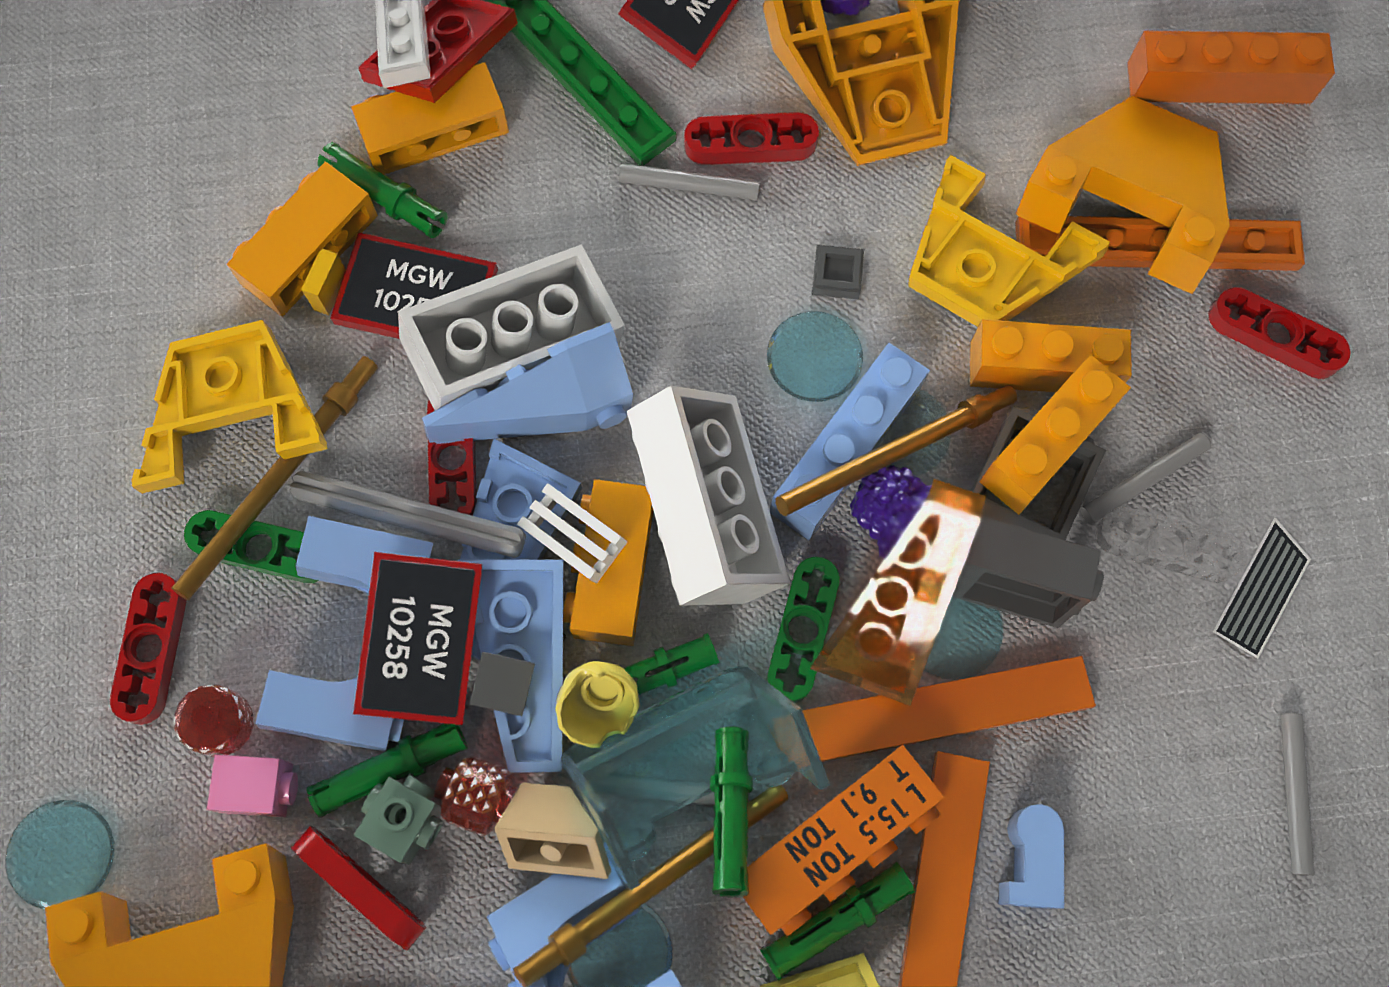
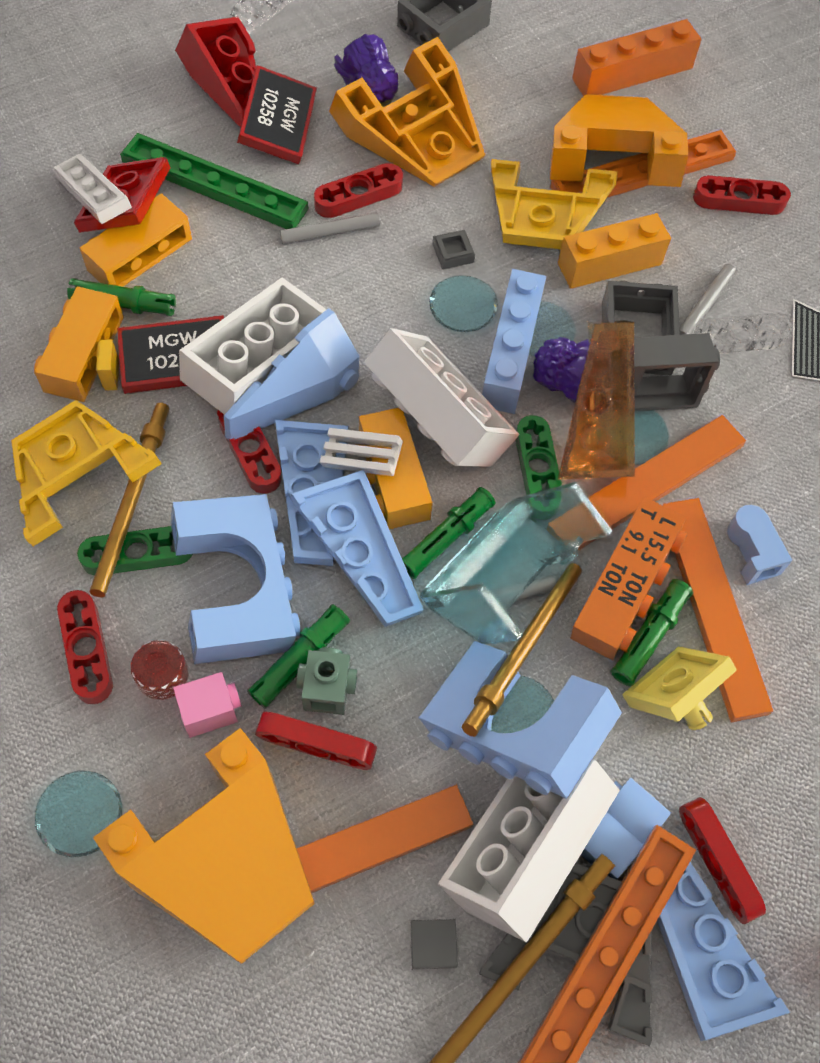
camera: 25 degrees left, 10 degrees down
(408, 514) = (239, 485): light grey axle -> none
(418, 638) = (288, 552): black tile -> none
(474, 794) = (373, 645): clear red head -> none
(502, 683) = (359, 562): dark grey tile -> none
(551, 833) = (442, 642): tan slope -> none
(596, 703) = (430, 547): light yellow hair -> none
(731, 792) = (545, 569): green pin -> none
(968, 414) = (580, 300): pearl gold bar -> none
(1054, 434) = (646, 278): light orange brick -> none

